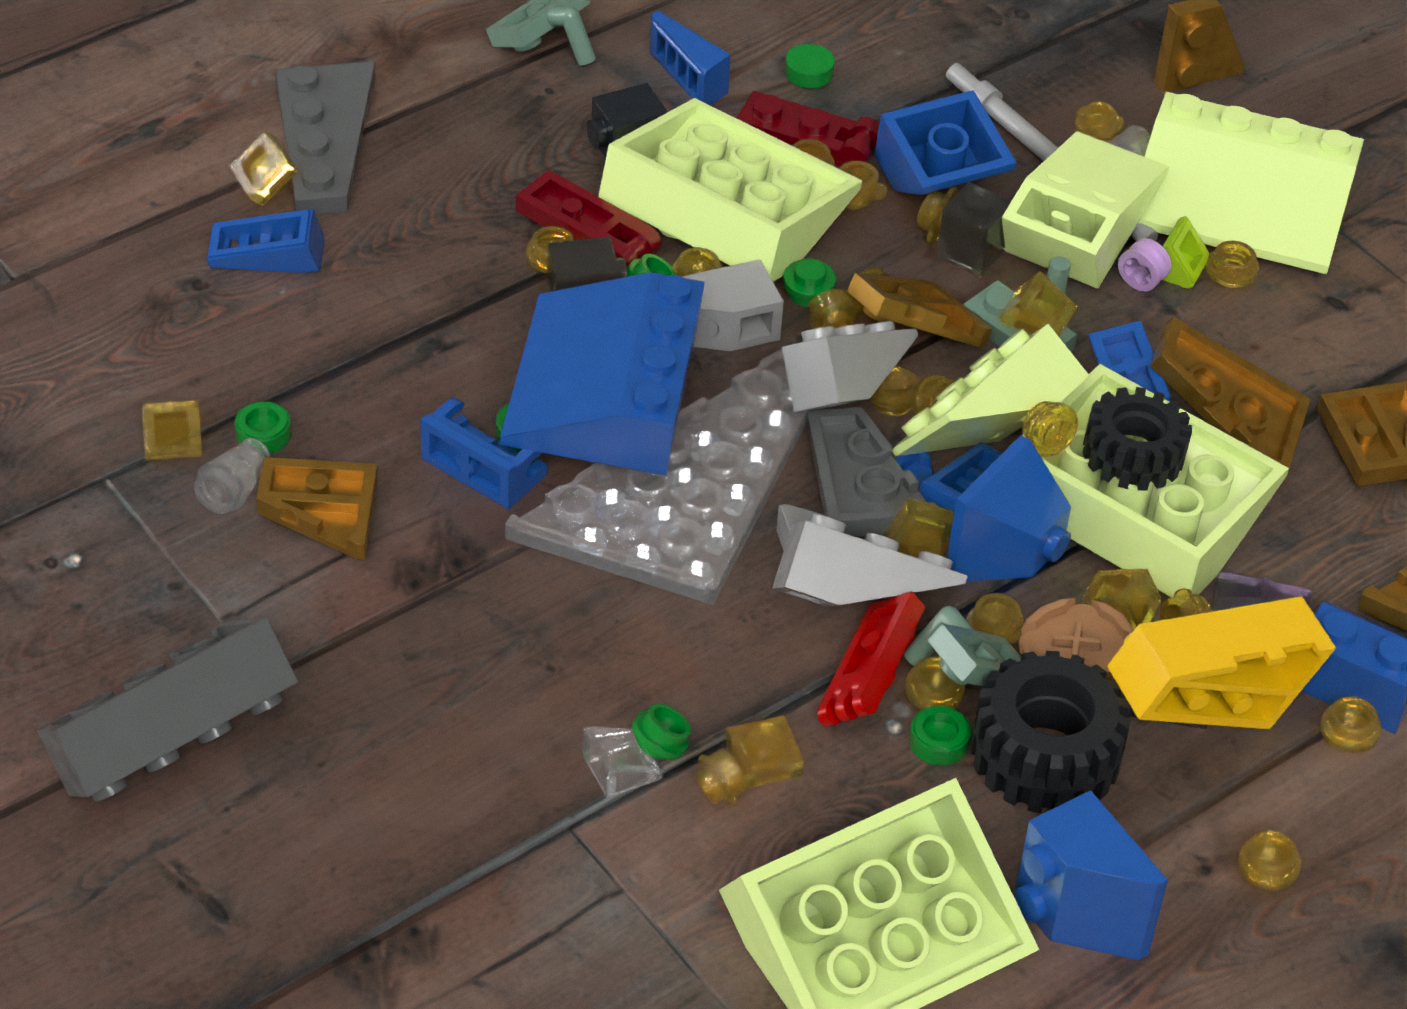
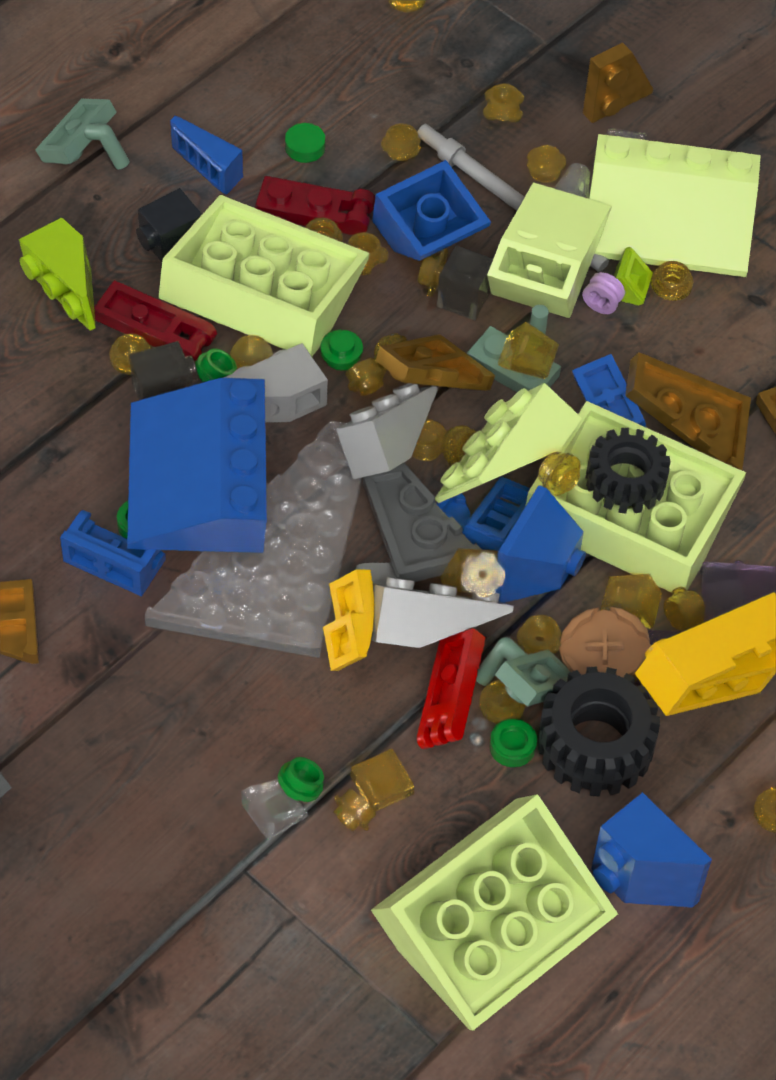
camera: 10 degrees left, 10 degrees up
(488, 147) = (61, 265): none -> lime slope
(763, 559) = (353, 606): none -> yellow slope
(925, 79) = (401, 142): none -> clear yellow plate
(948, 529) = (494, 574): none -> clear yellow plate
(1058, 56) = (503, 103): none -> clear yellow plate

